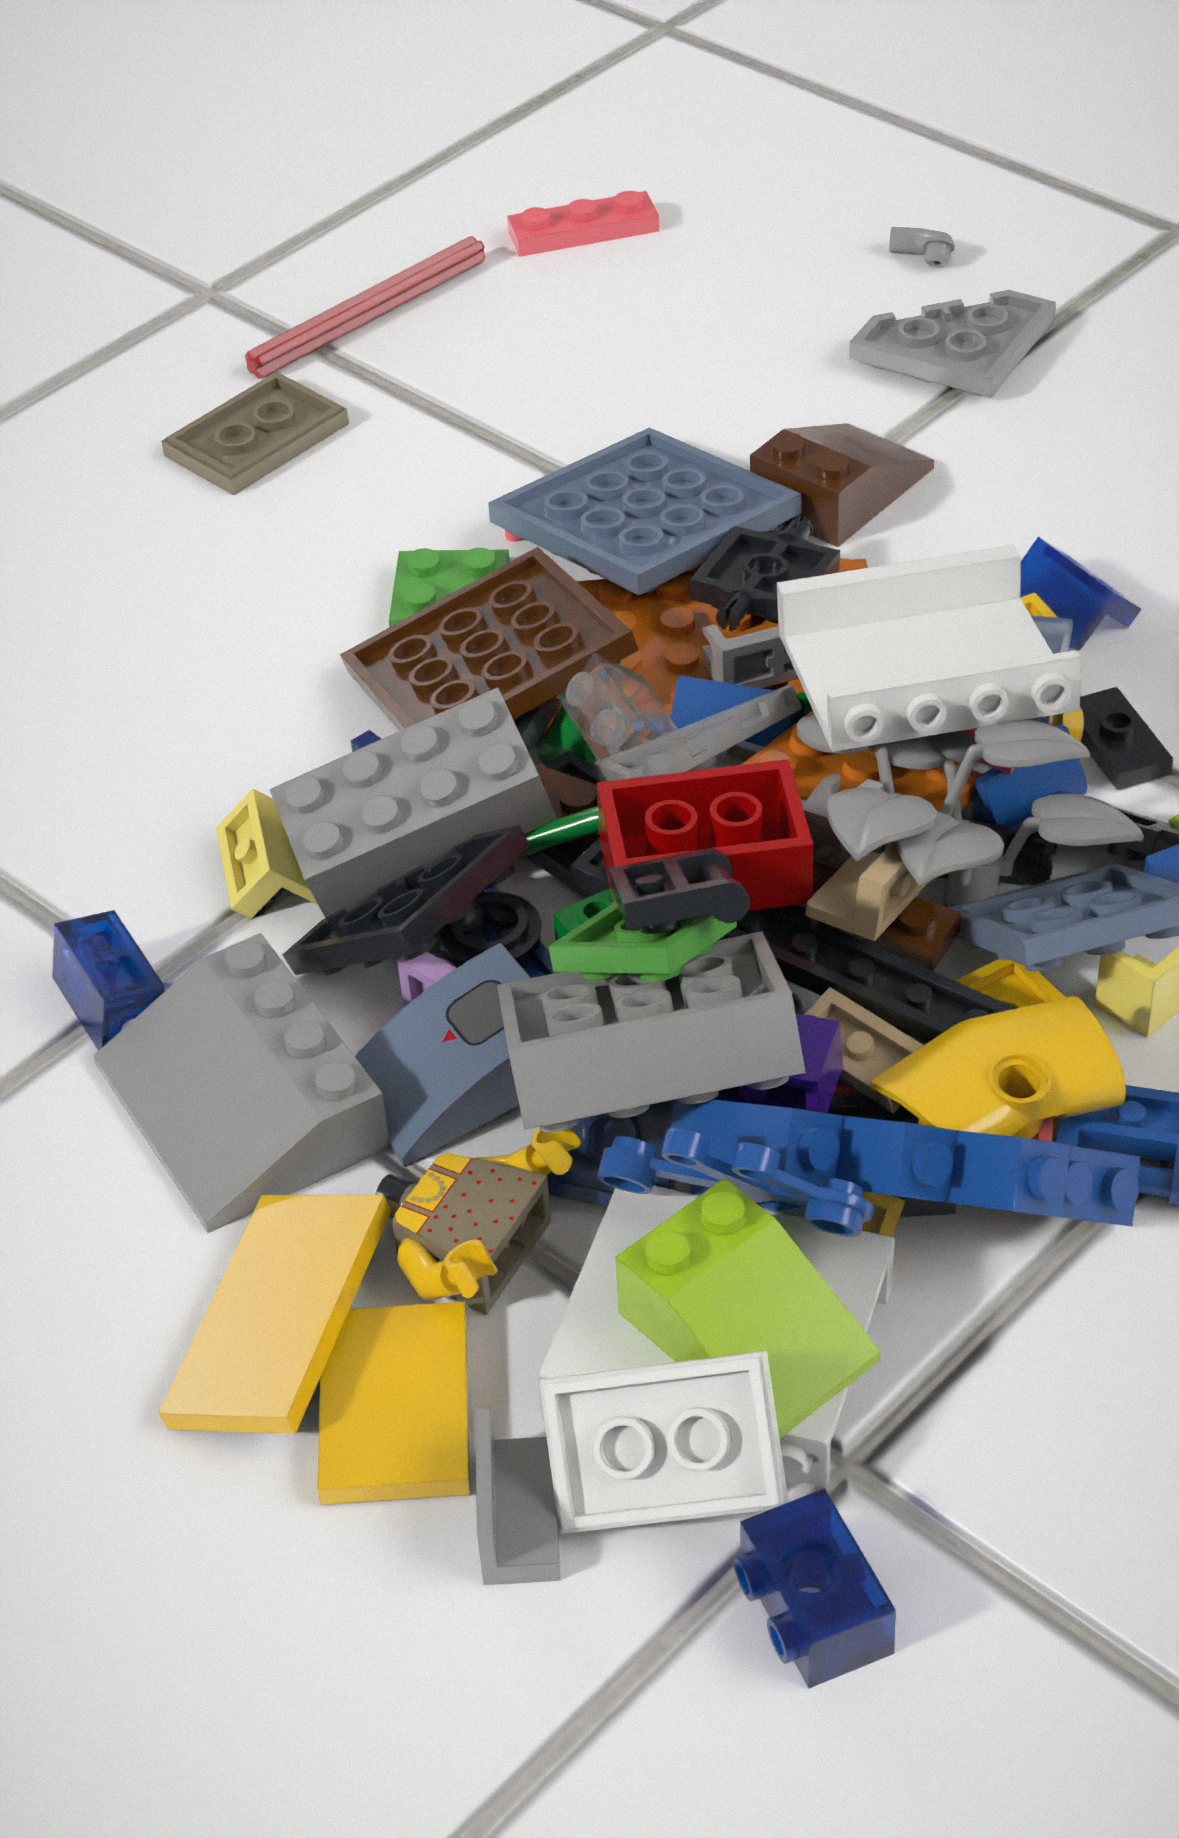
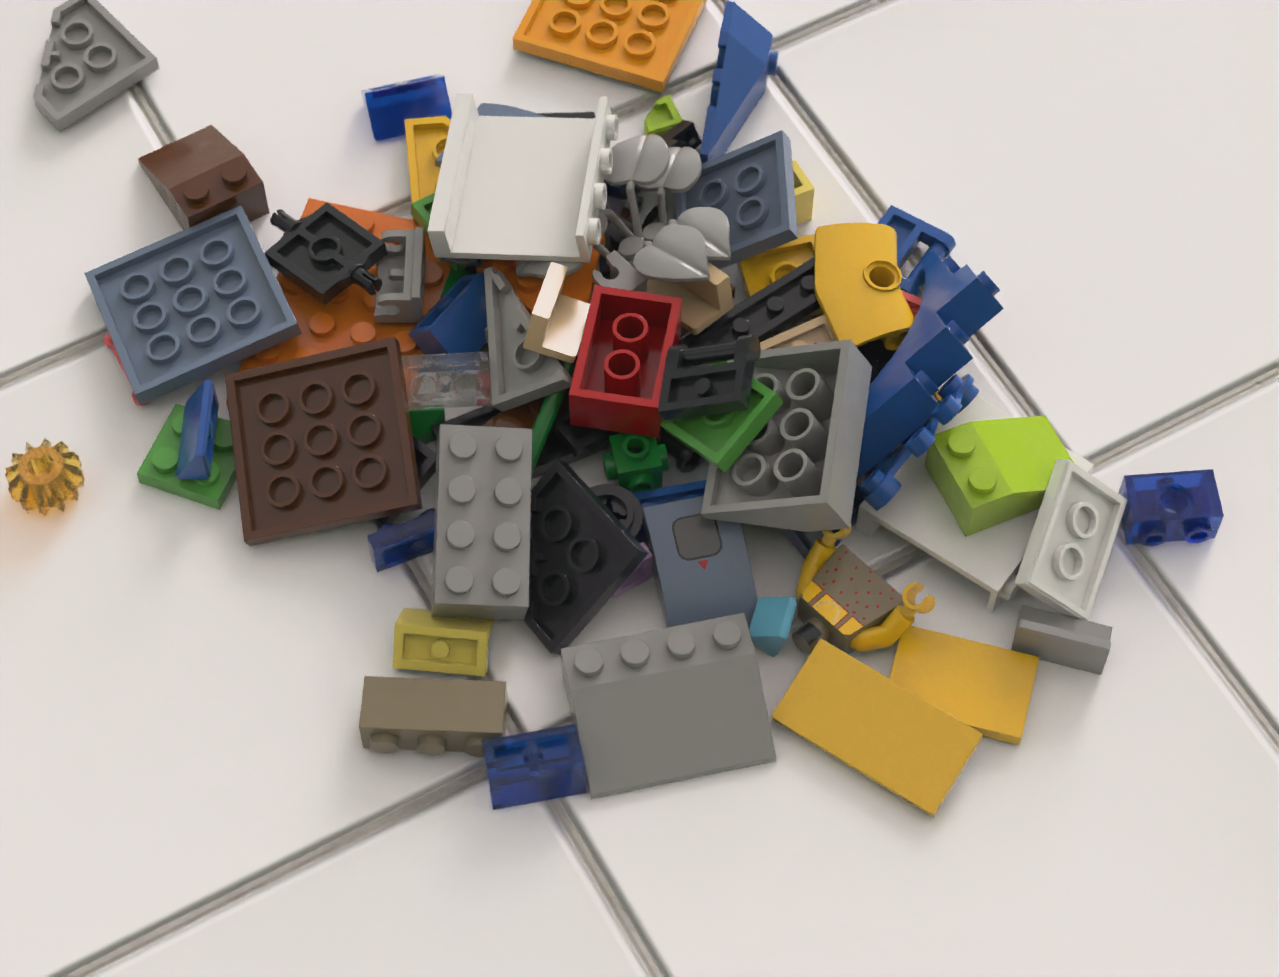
camera: 75 degrees left, 15 degrees up
(151, 874) = (431, 714): none -> dark tan brick
(361, 487) = (44, 477): none -> clear yellow gear
(401, 1151) = (772, 623): none -> medium azure slope
(454, 560) = (198, 433): none -> blue slope
(719, 729) = (556, 319): none -> tan panel

